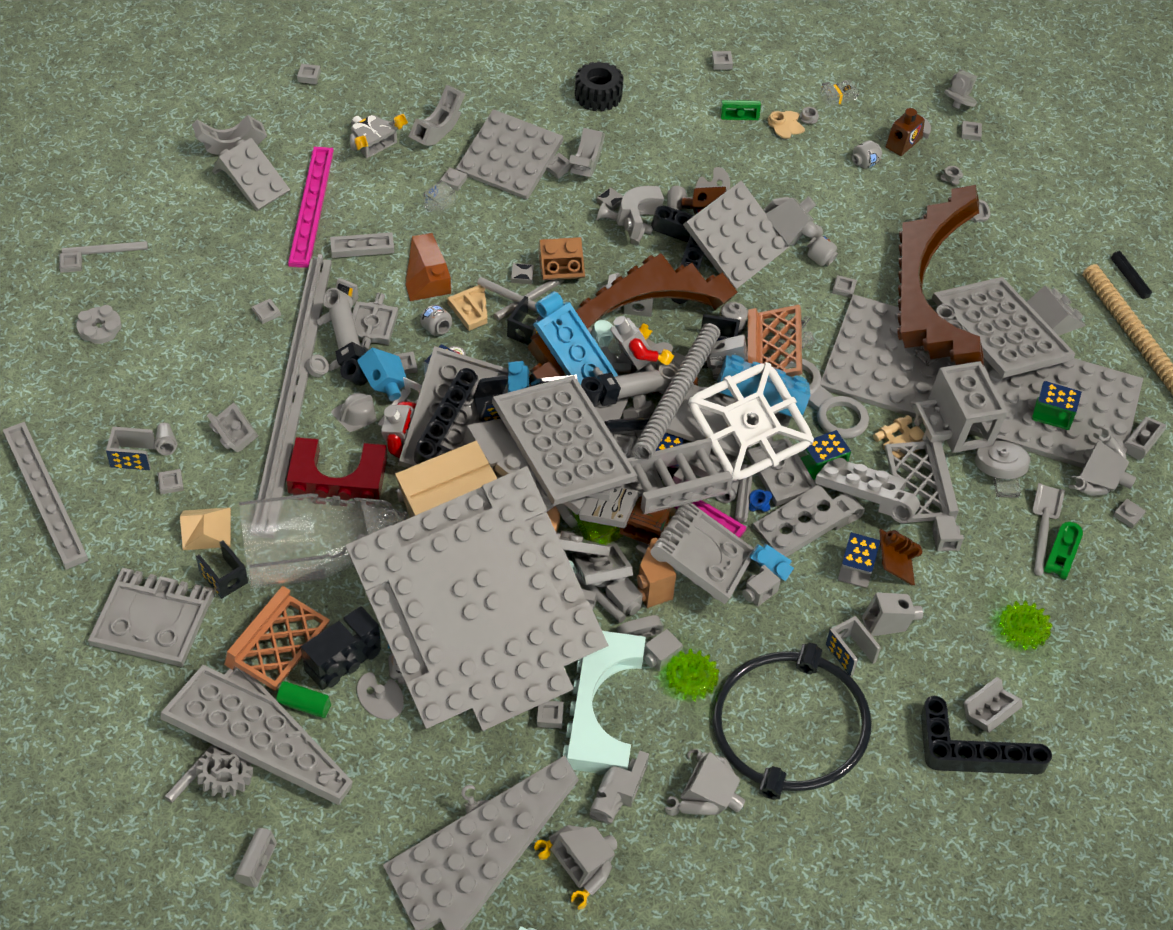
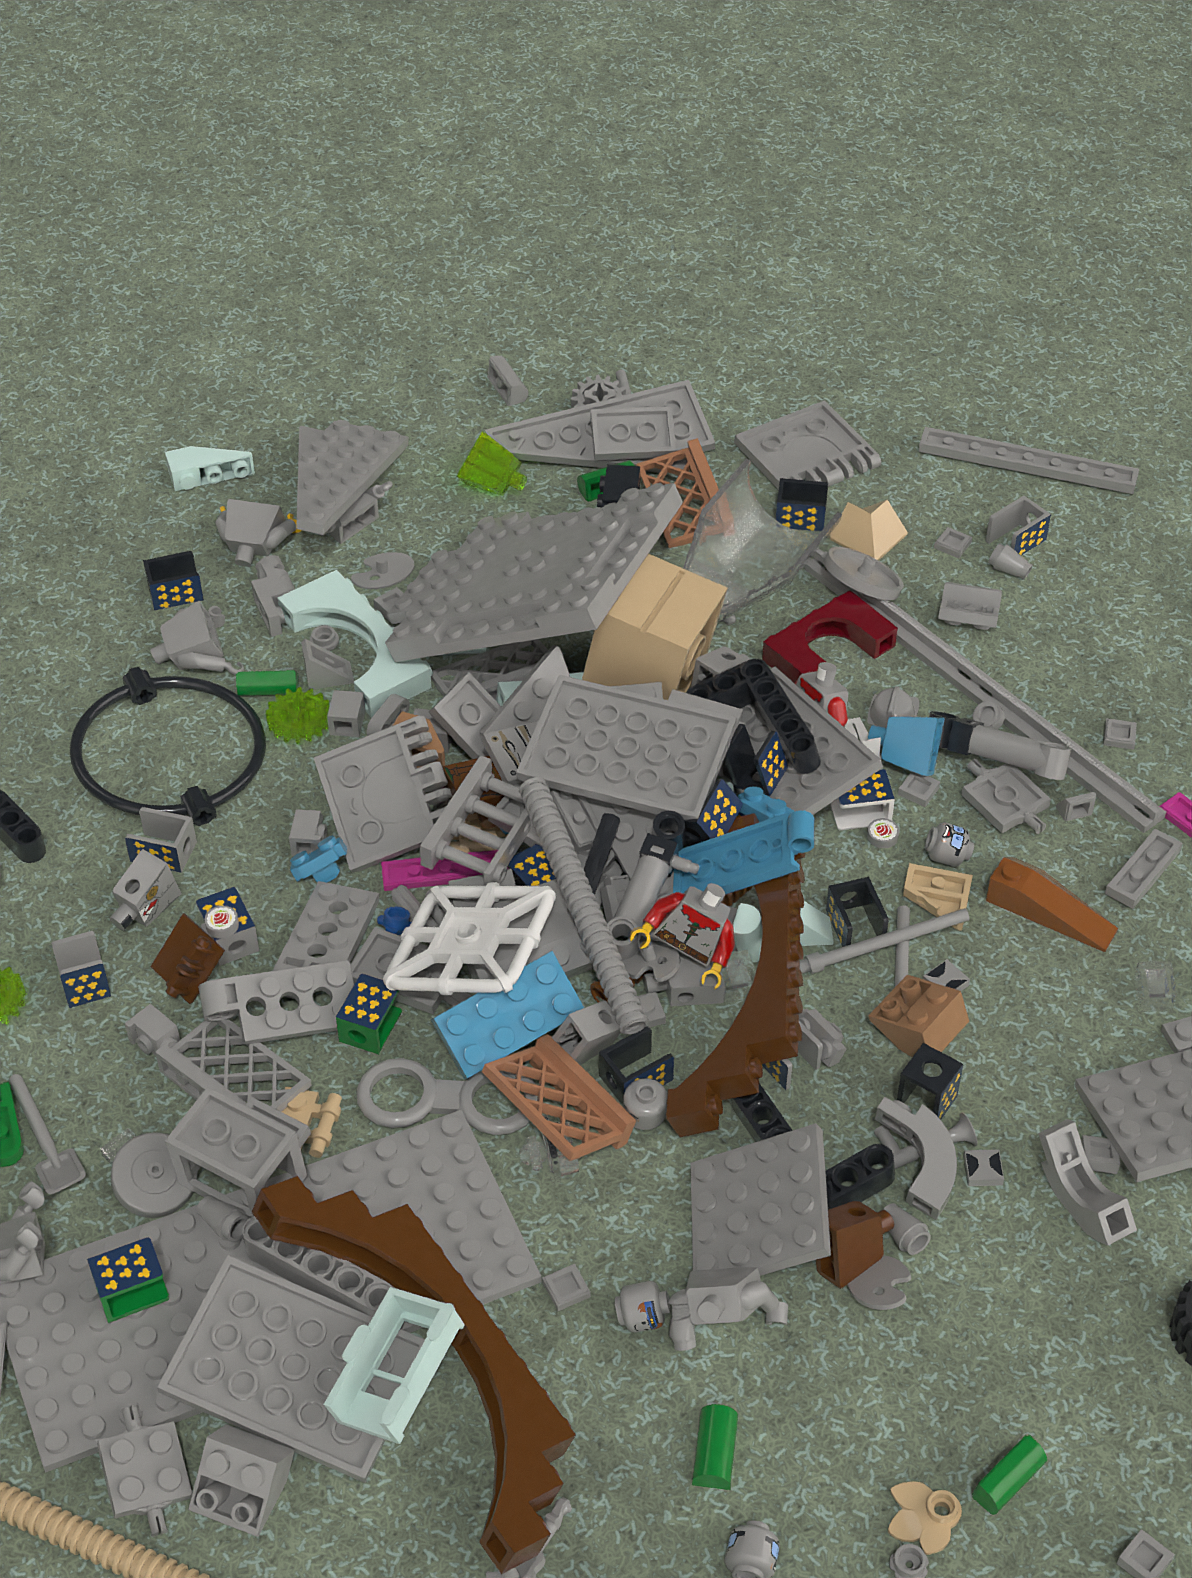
camera: 140 degrees right, 5 degrees down
(252, 703) = (632, 432): none -> light grey plate
(262, 480) = (863, 573): none -> light grey piece
(371, 766) = (491, 467): none -> clear neon green torso
(515, 757) = (389, 566): none -> light grey piece
(600, 228) = (943, 1086): none -> black piece
(619, 720) = (325, 637): none -> light grey plate
(643, 696) = (324, 667): none -> light grey slope
(675, 866) = (173, 580): none -> piece
(687, 718) = (266, 682): none -> green brick
(844, 193) = (715, 1447): none -> green brick
(869, 542) = (221, 922): none -> tile
(964, 590) = (81, 969): none -> piece
(979, 268) = (367, 1349): none -> light aqua piece
(1098, 343) = (144, 1470): none -> light grey plate

